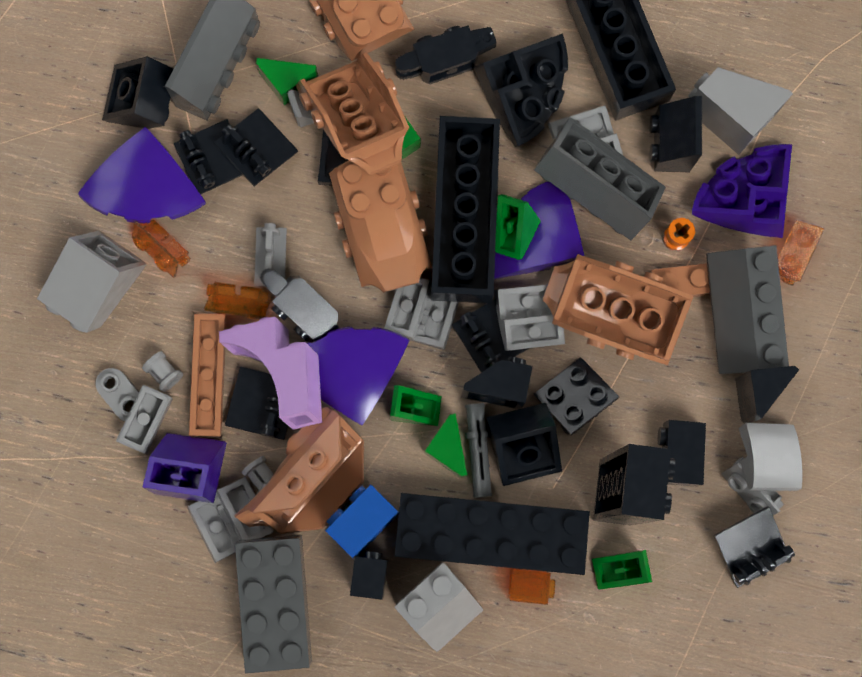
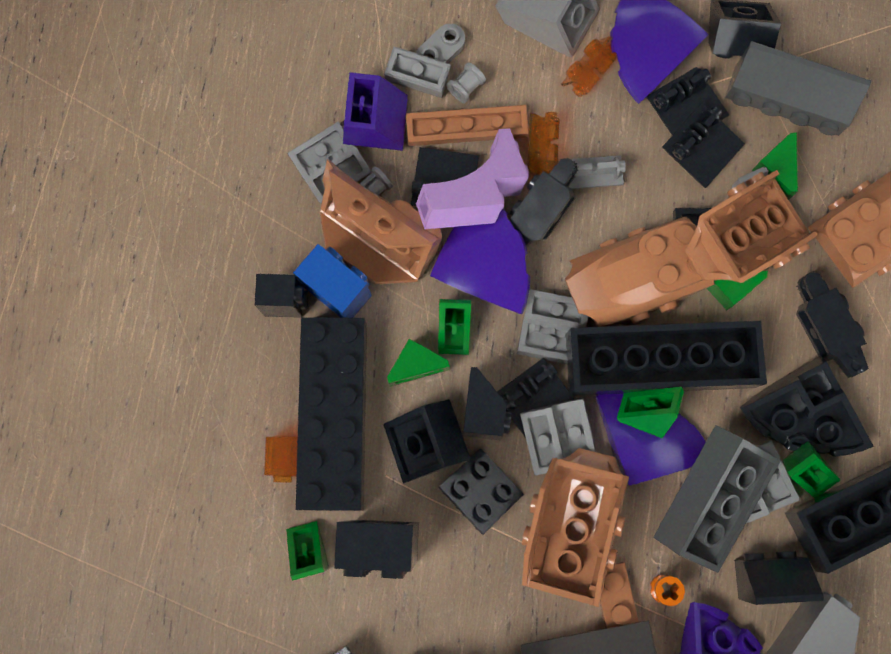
camera: 90 degrees right, 0 degrees up
(273, 604) = (249, 208): dark grey brick -> none
(438, 607) = (255, 365): light grey slope -> none
(478, 450) = (379, 402): dark grey pin -> none
(578, 92) = (810, 470): none -> green slope
(687, 448) = (430, 607): black brick -> none

